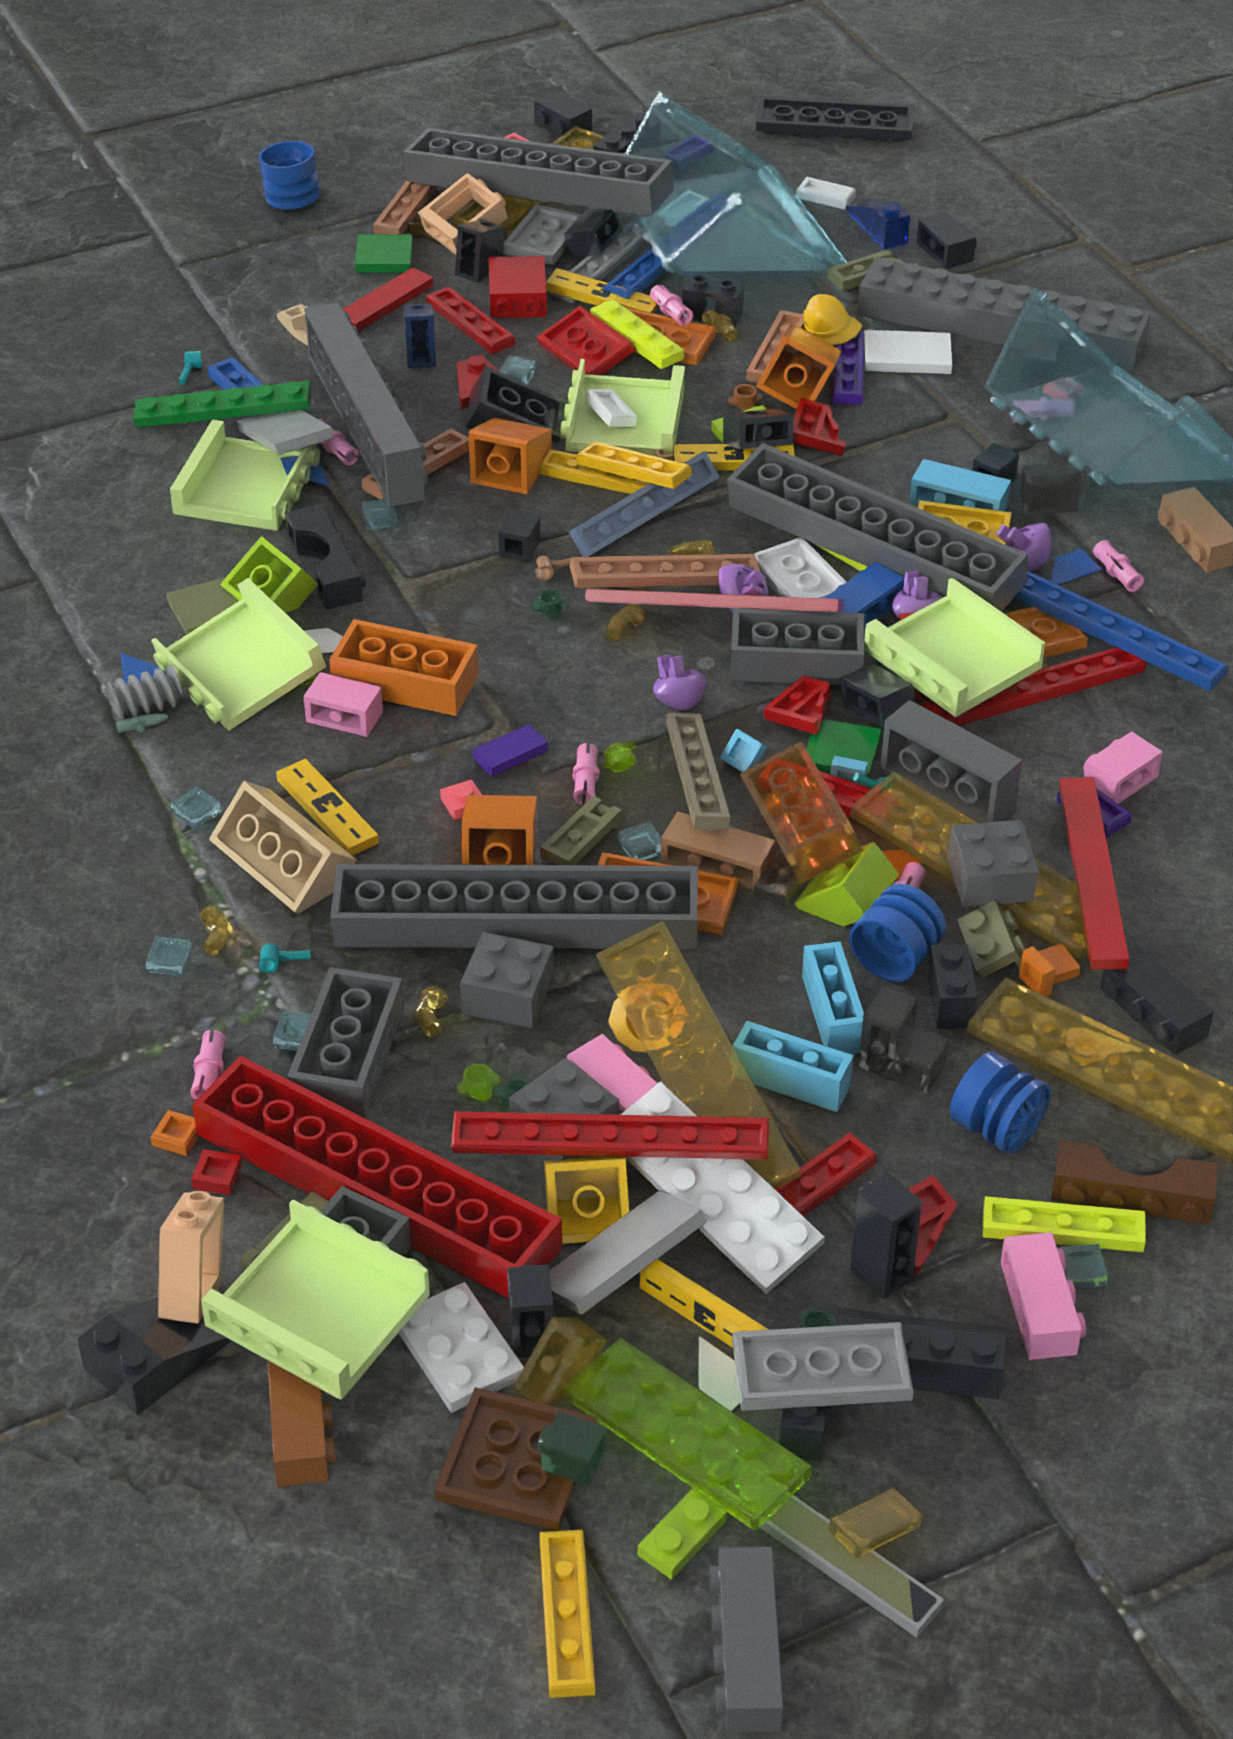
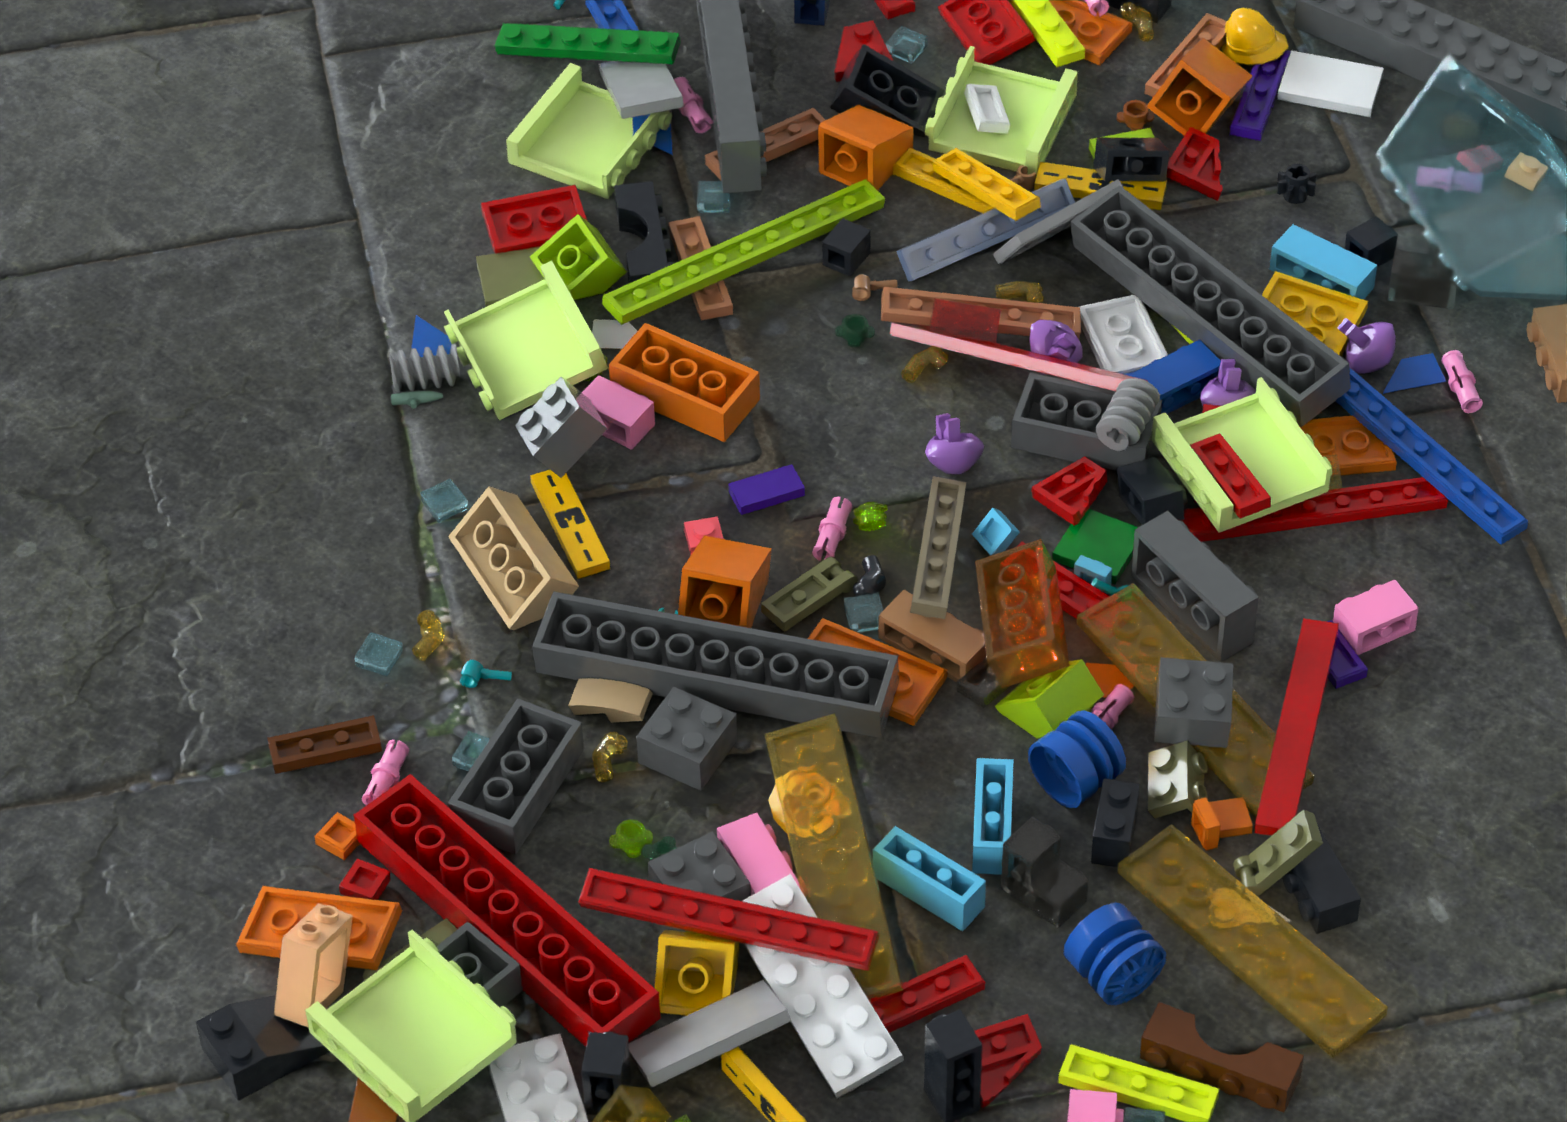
camera: 15 degrees right, 5 degrees up
(134, 1222) = (281, 909): none -> orange tile
(137, 1048) = (324, 744): none -> reddish brown plate
(208, 554) = (530, 218): none -> red plate
(299, 719) = (560, 426): none -> dark grey brick
(387, 573) = (689, 239): none -> nougat plate
(421, 552) = (741, 252): none -> lime plate
(425, 956) = (615, 698): none -> tan slope
(639, 809) = (873, 579): none -> black arm
(656, 574) = (964, 320): none -> clear red plate
(704, 490) = (1049, 226): none -> light grey tile
(841, 625) = (1127, 414): none -> light grey piece
(910, 430) = (1296, 183): none -> black gear
(963, 666) = (1232, 475): none -> red plate
(1110, 391) = (1526, 171): none -> tan plate
(1123, 982) = (1279, 853): none -> olive plate

